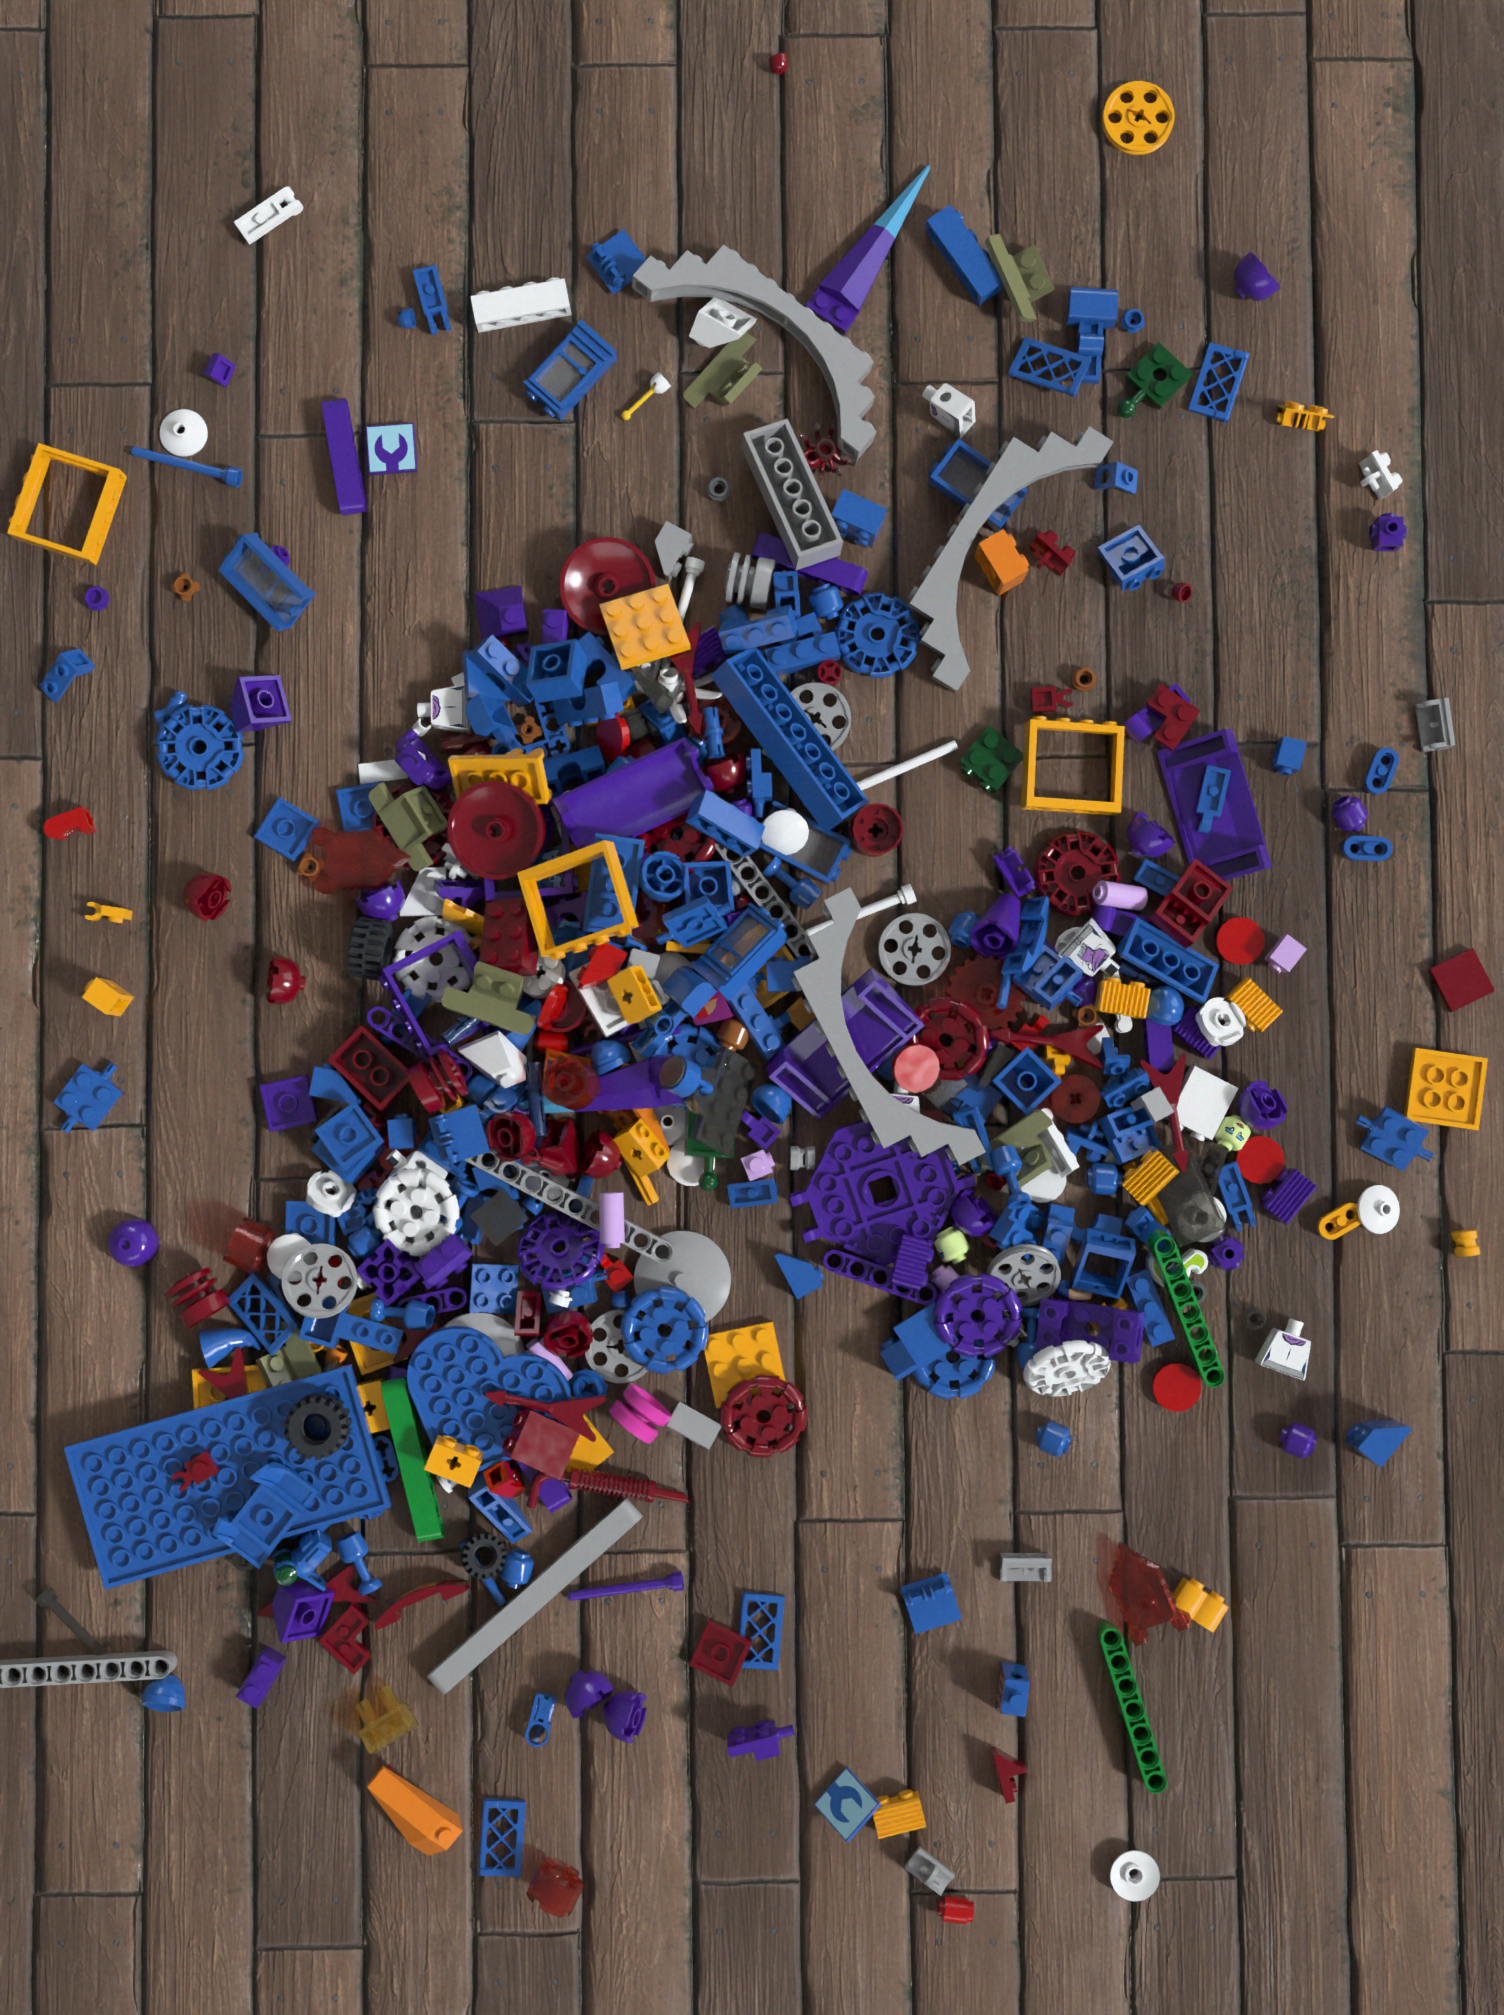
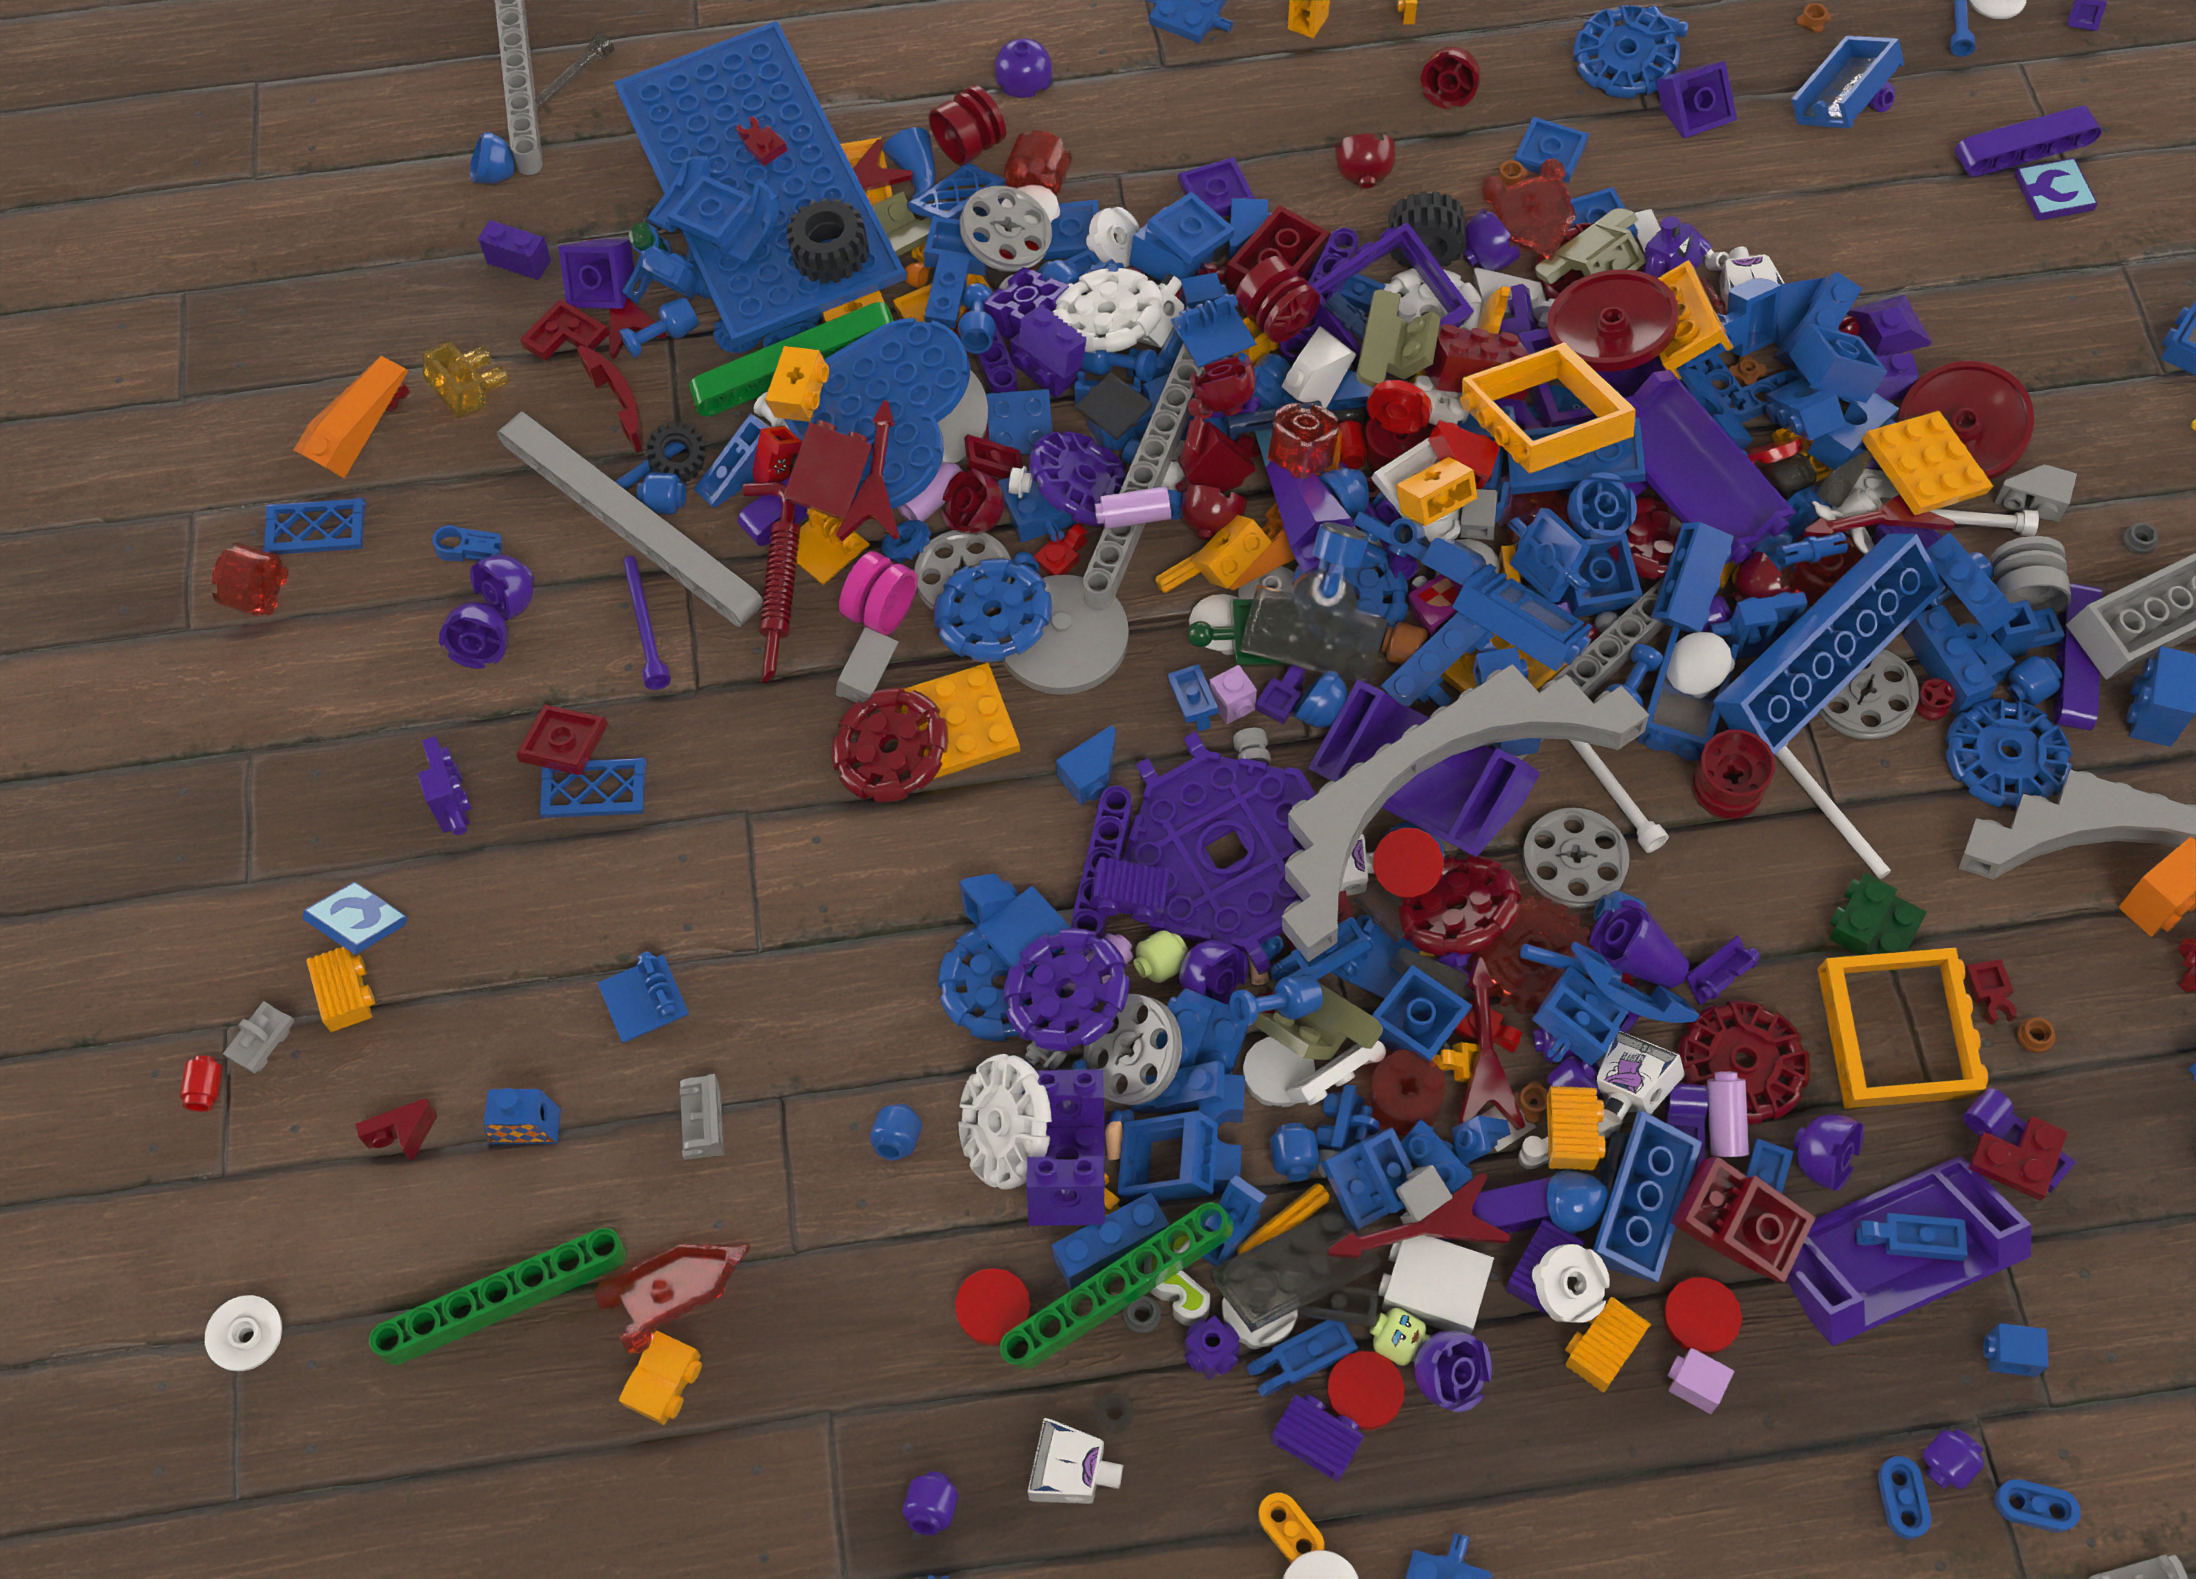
camera: 85 degrees right, 25 degrees down
(1149, 1176) = (1310, 1207): light orange brick -> none

